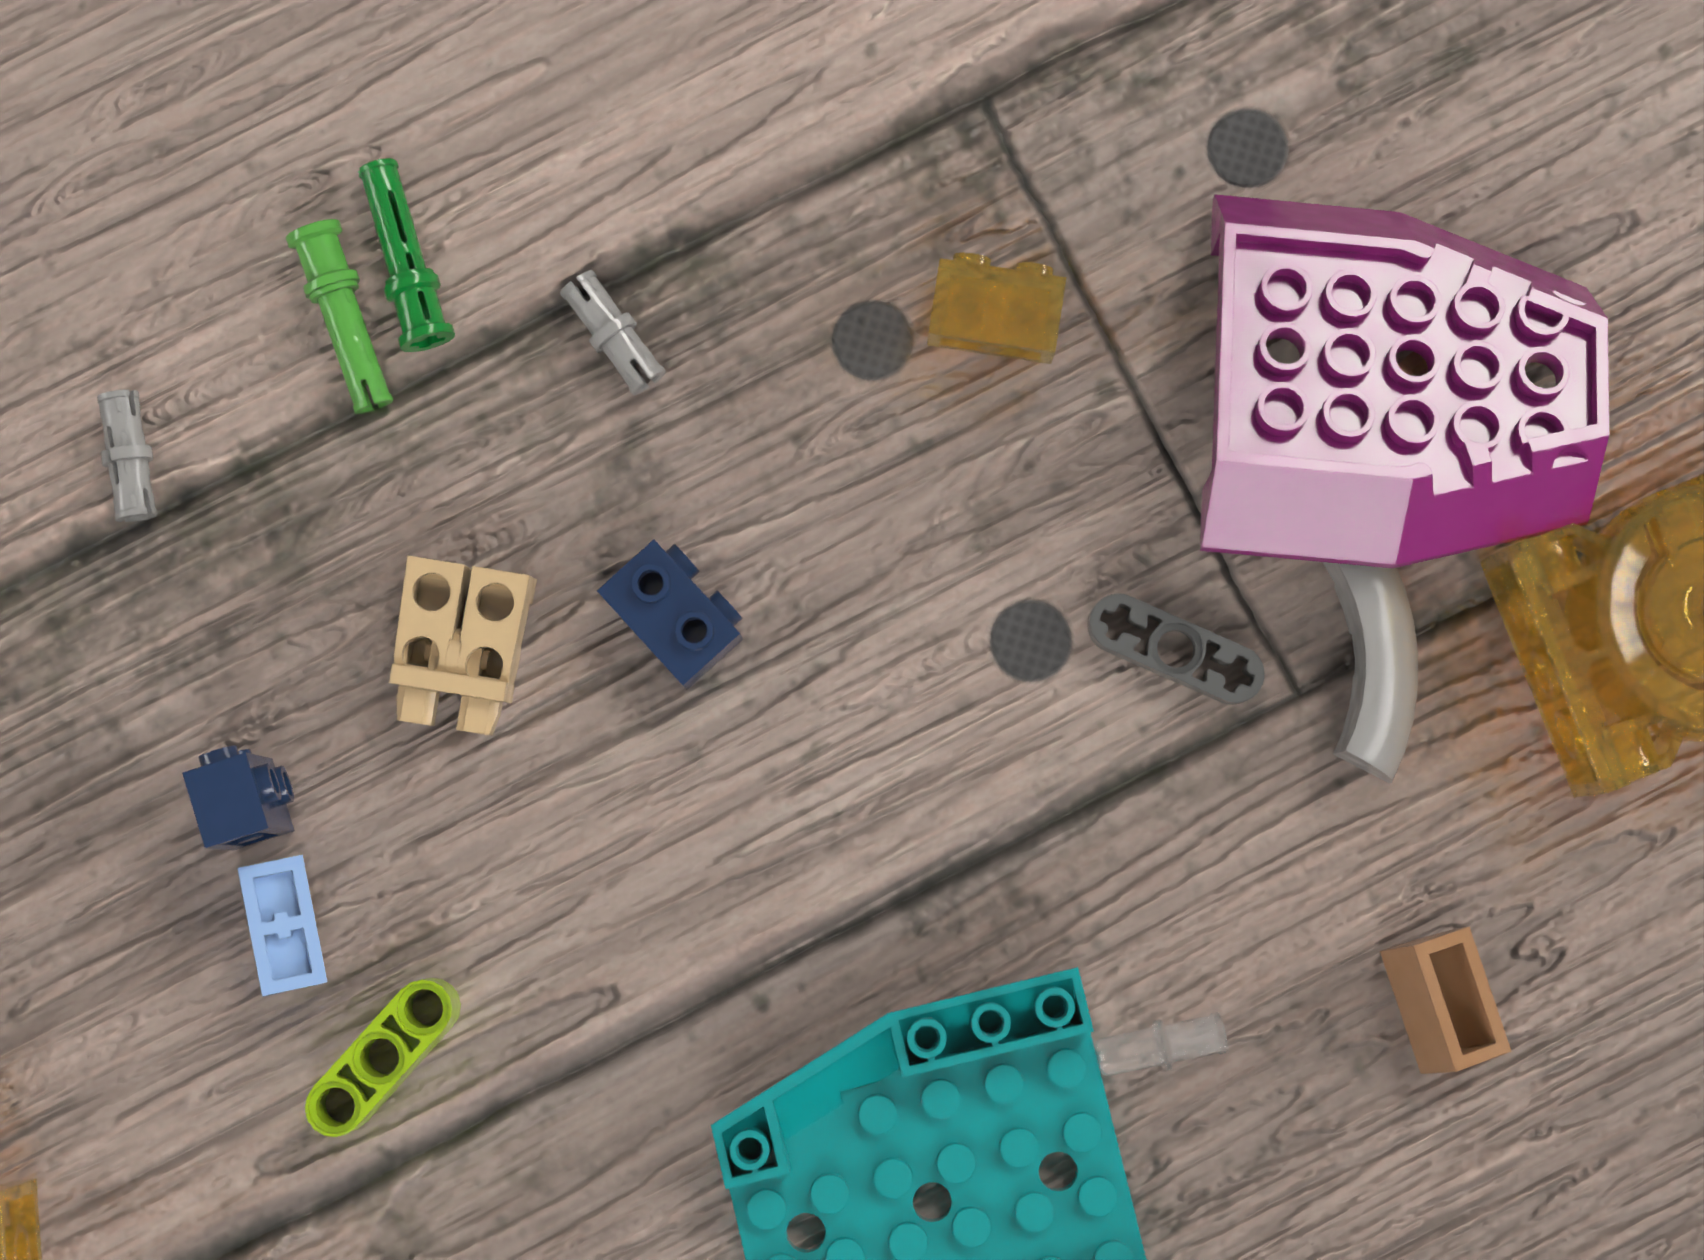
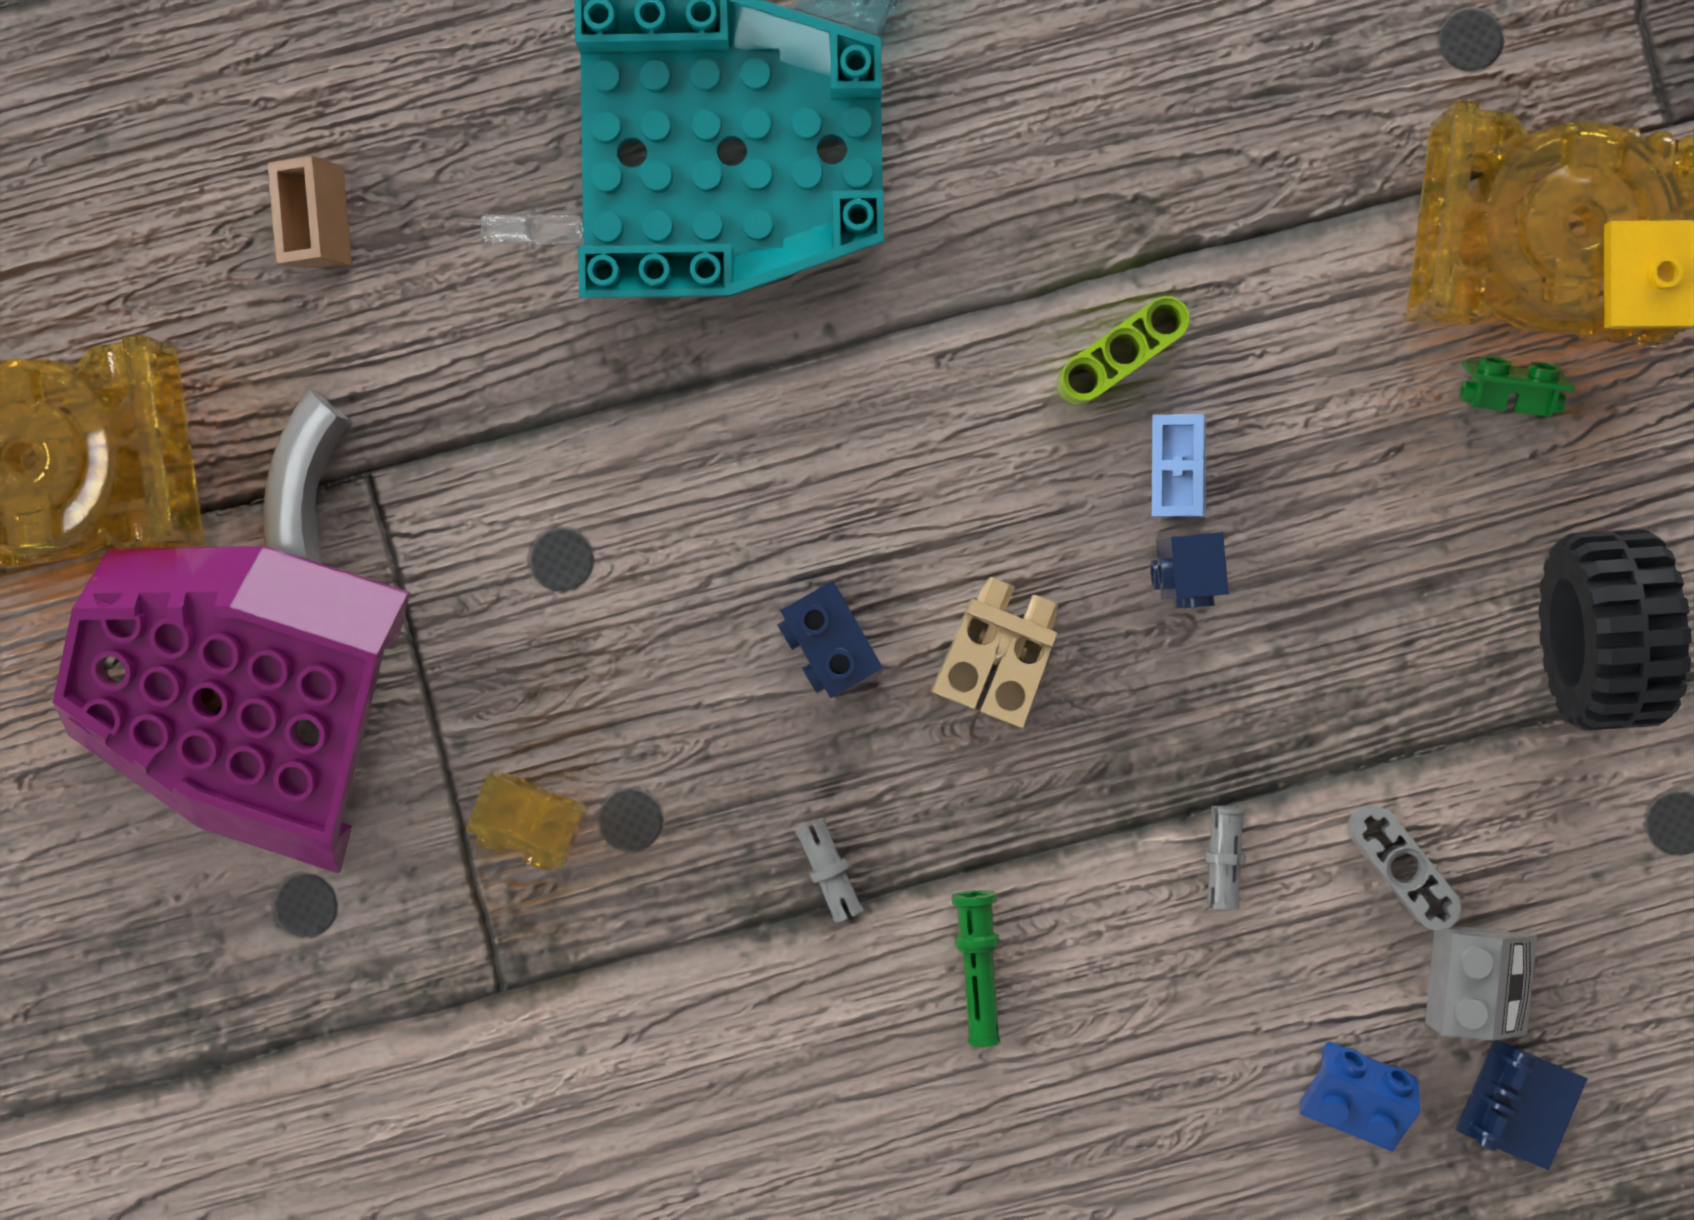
camera: 175 degrees left, 5 degrees up
(333, 288) = (1038, 953): bright green pin -> none
(1212, 681) = (414, 516): dark grey beam -> none

